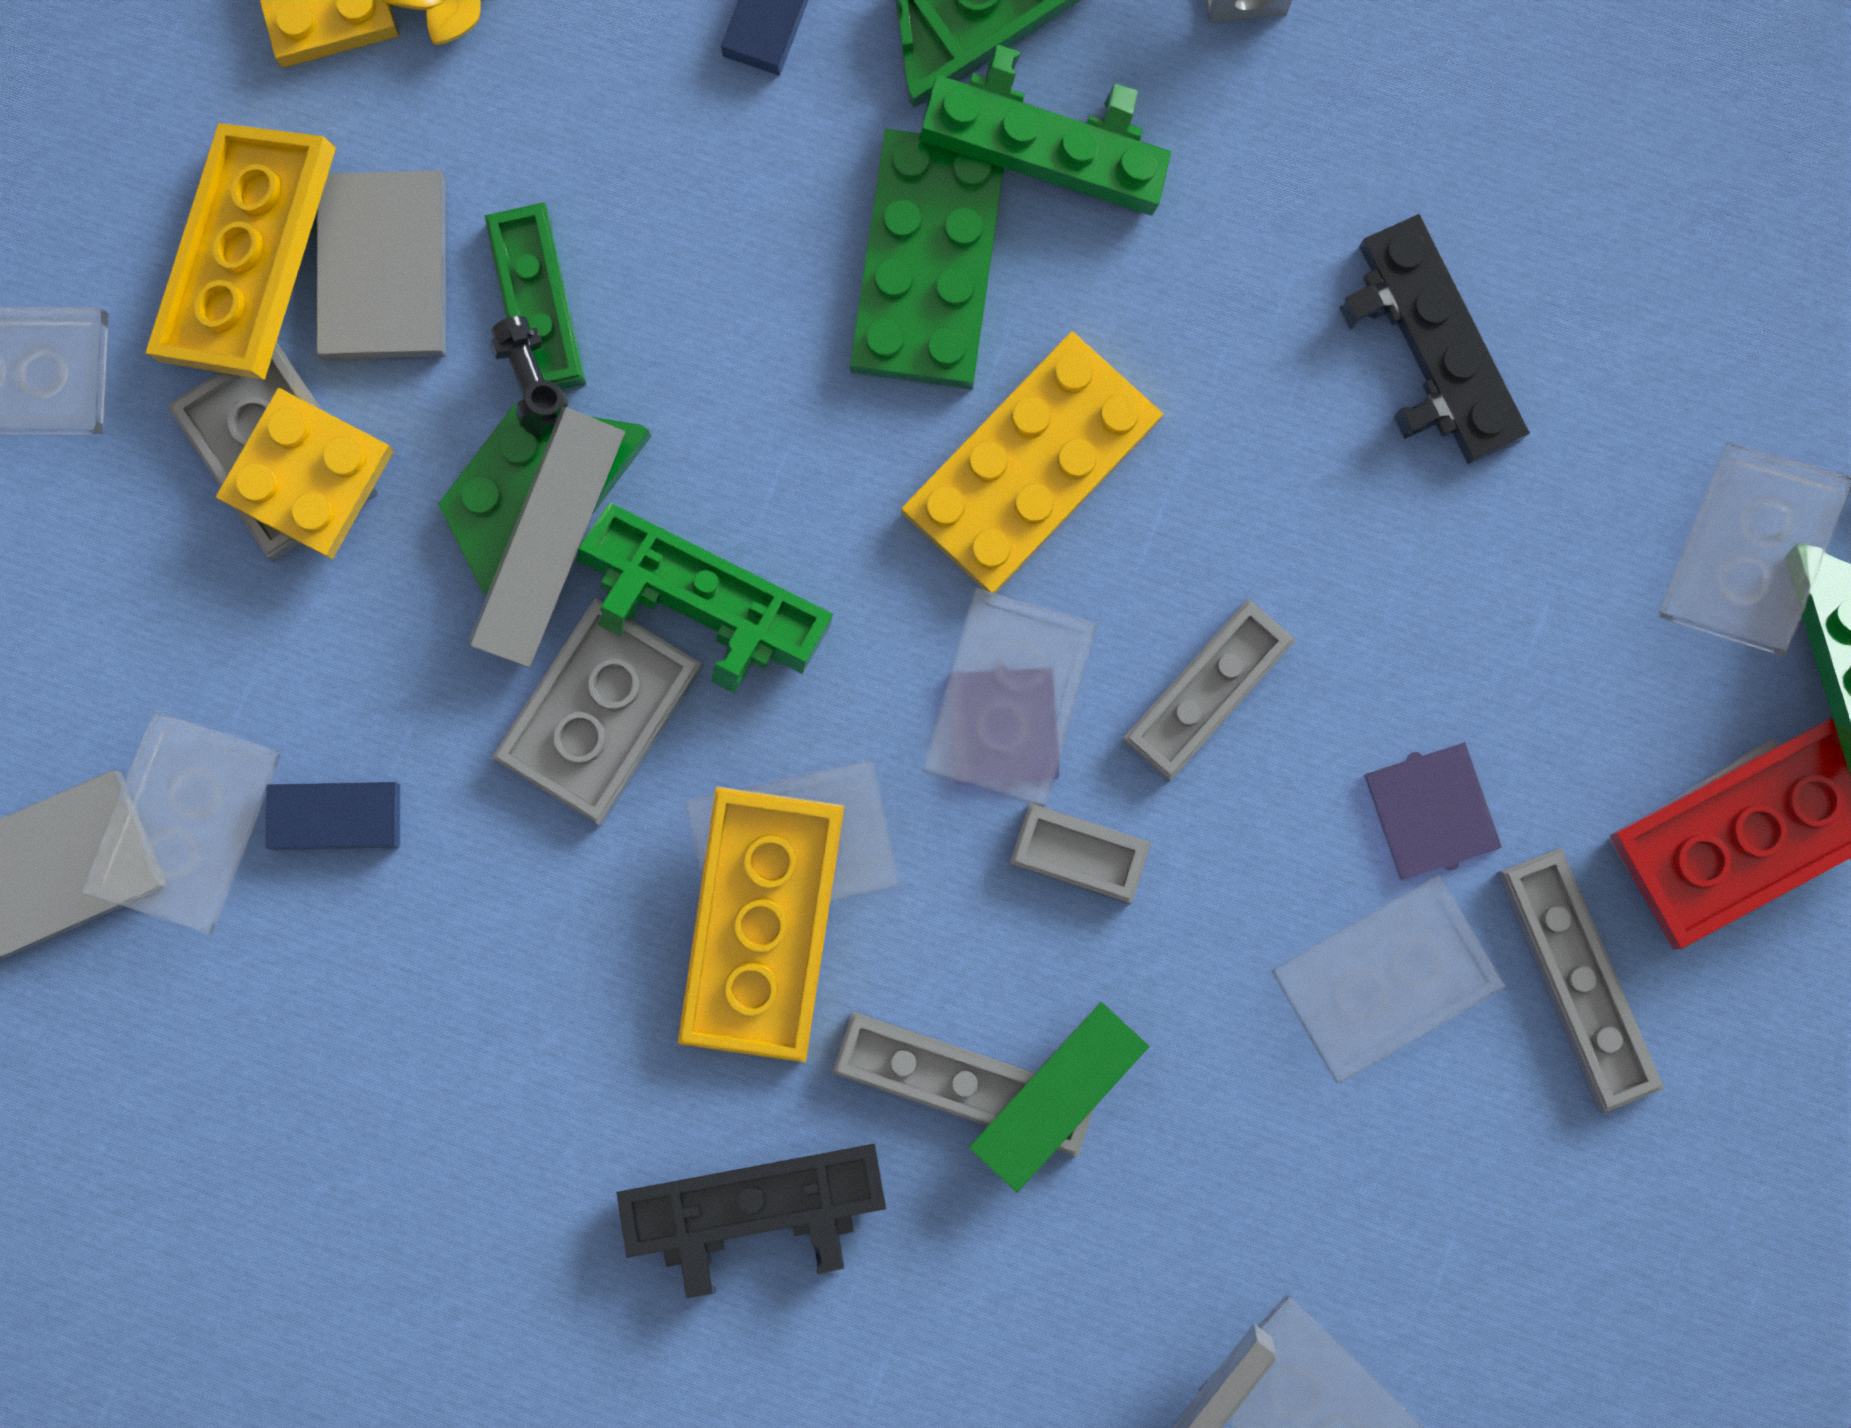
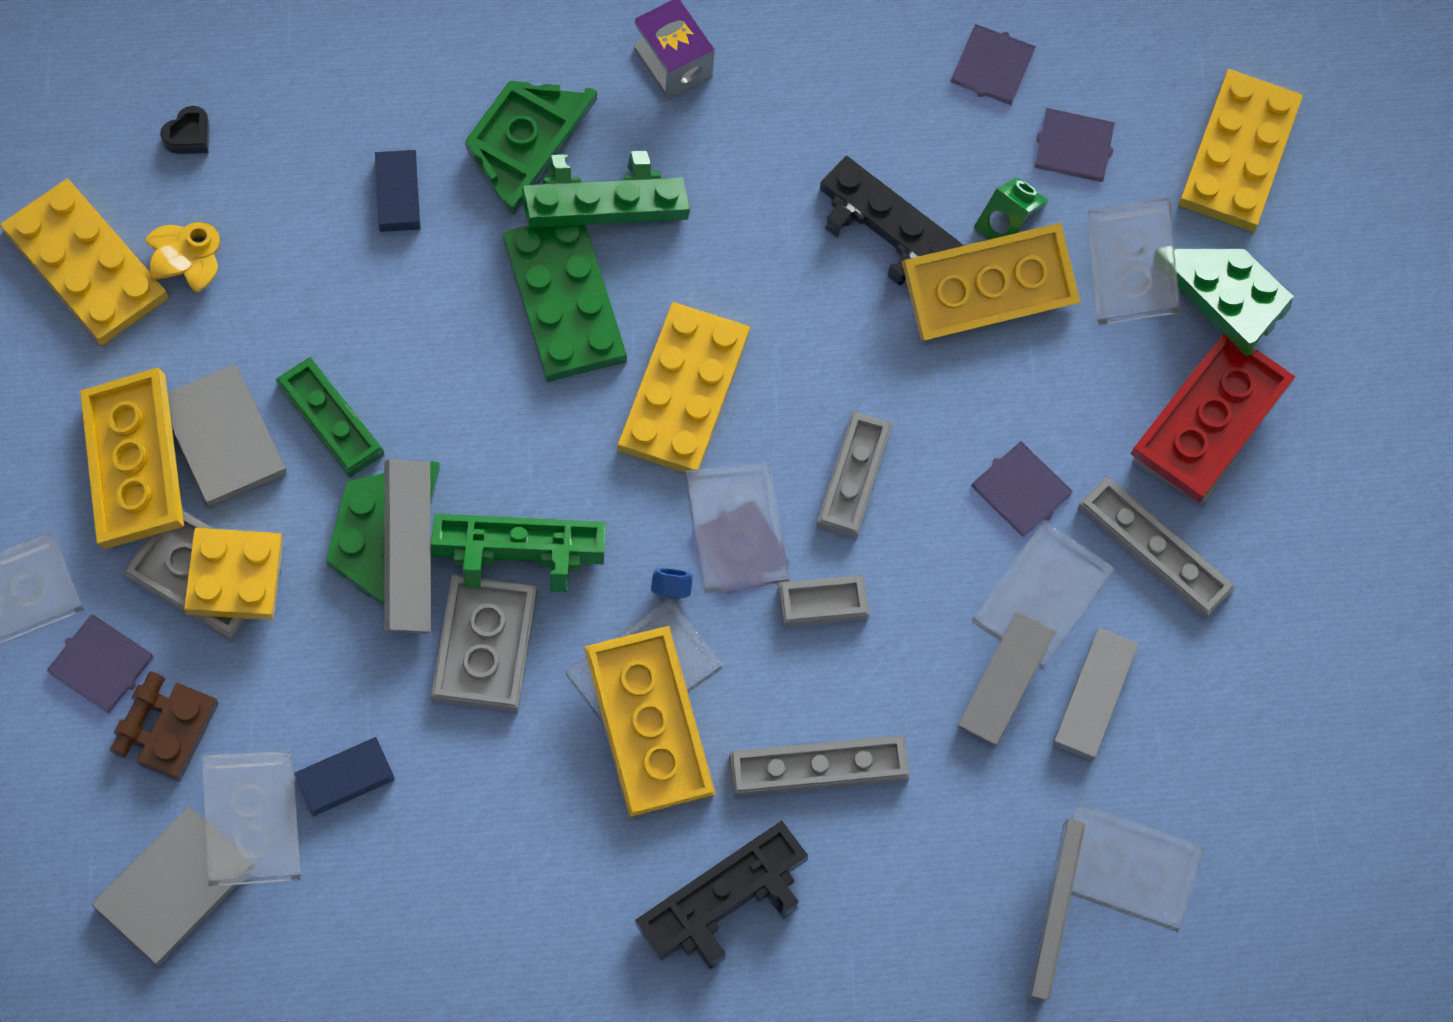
camera: 30 degrees left, 15 degrees down
(90, 518) = (100, 663): none -> clear purple piece
(145, 657) = (176, 732): none -> reddish brown plate
(541, 397) = (367, 465): black bar -> none
(882, 740) = (671, 583): none -> blue tile
(1058, 1096) = (880, 743): green tile -> none
(1276, 1081) = (1006, 679): none -> light grey tile
(1391, 1153) = (1095, 694): none -> light grey tile
(1534, 494) = (990, 281): none -> yellow plate
(1630, 387) = (1016, 200): none -> green bracket
(1698, 160) = (993, 64): none -> clear purple piece
(1757, 332) = (1074, 145): none -> clear purple piece

